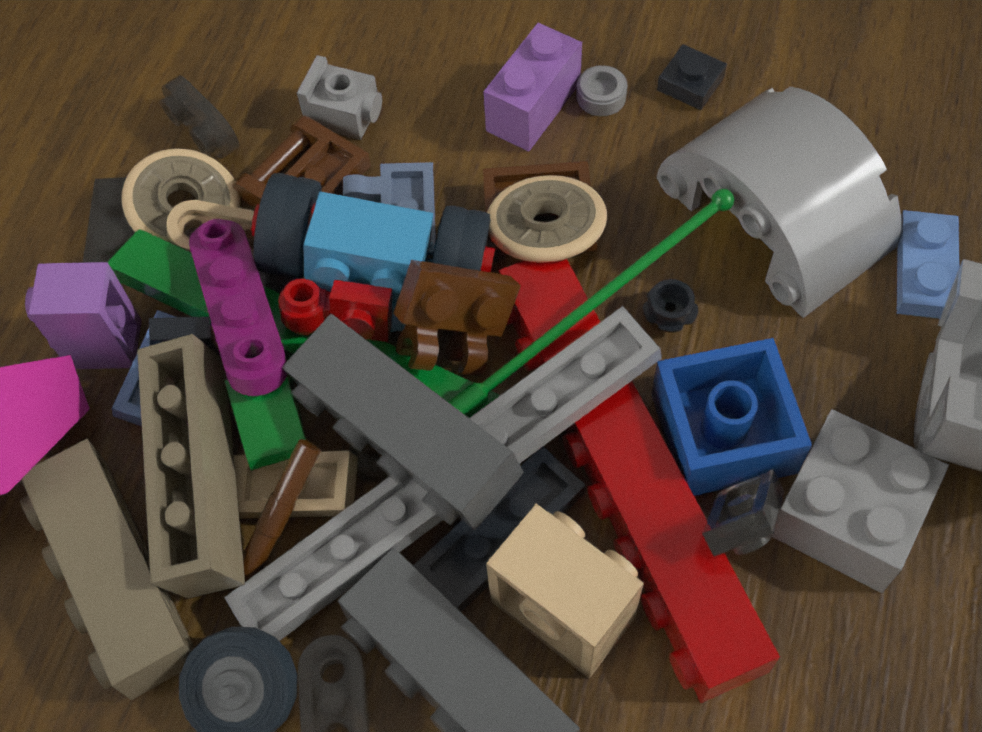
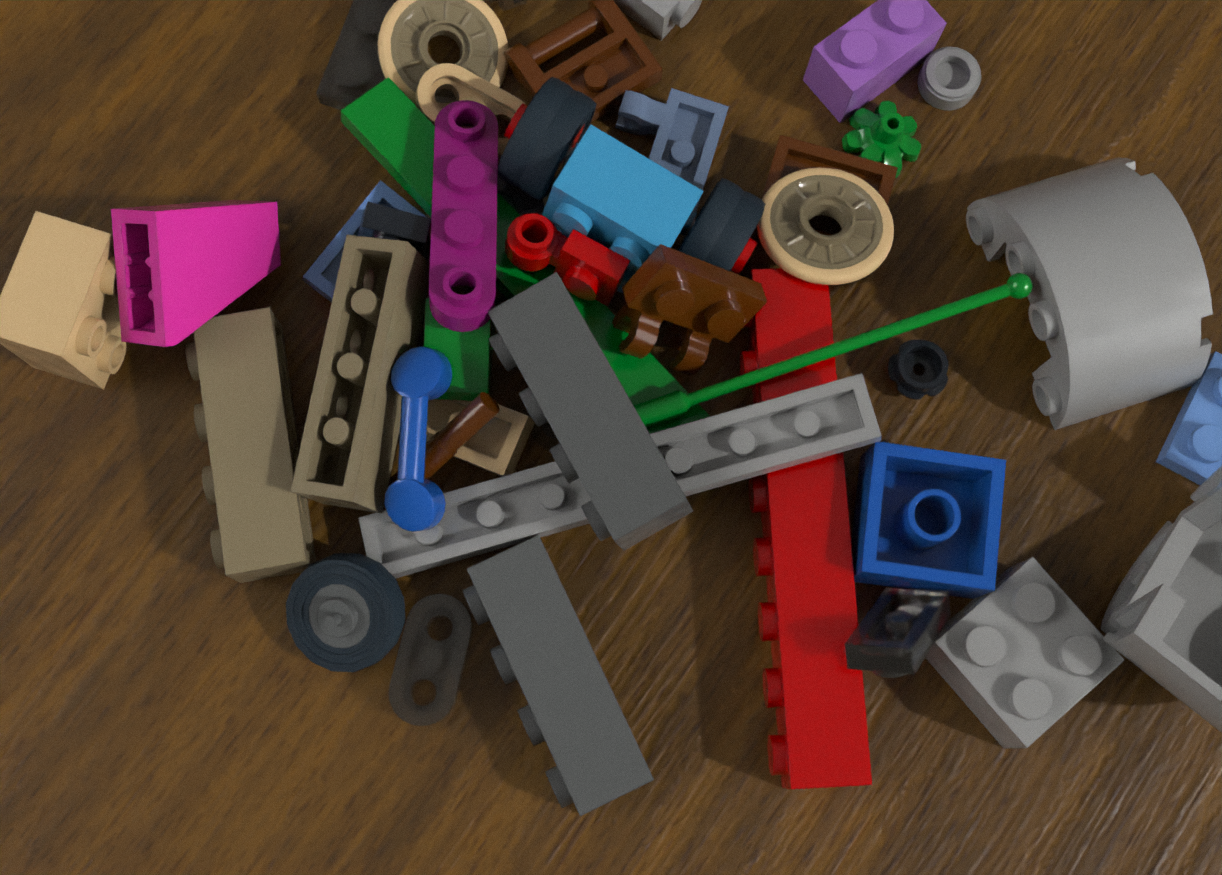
camera: 10 degrees right, 15 degrees up
(84, 314) = (303, 161): medium lavender brick -> none
(264, 557) = (412, 500): none -> blue bar
(459, 559) = (603, 572): black plate -> none
(564, 588) = (692, 640): tan brick -> none
(567, 144) = (883, 136): none -> green plant
(691, 77) = (1056, 98): black plate -> none

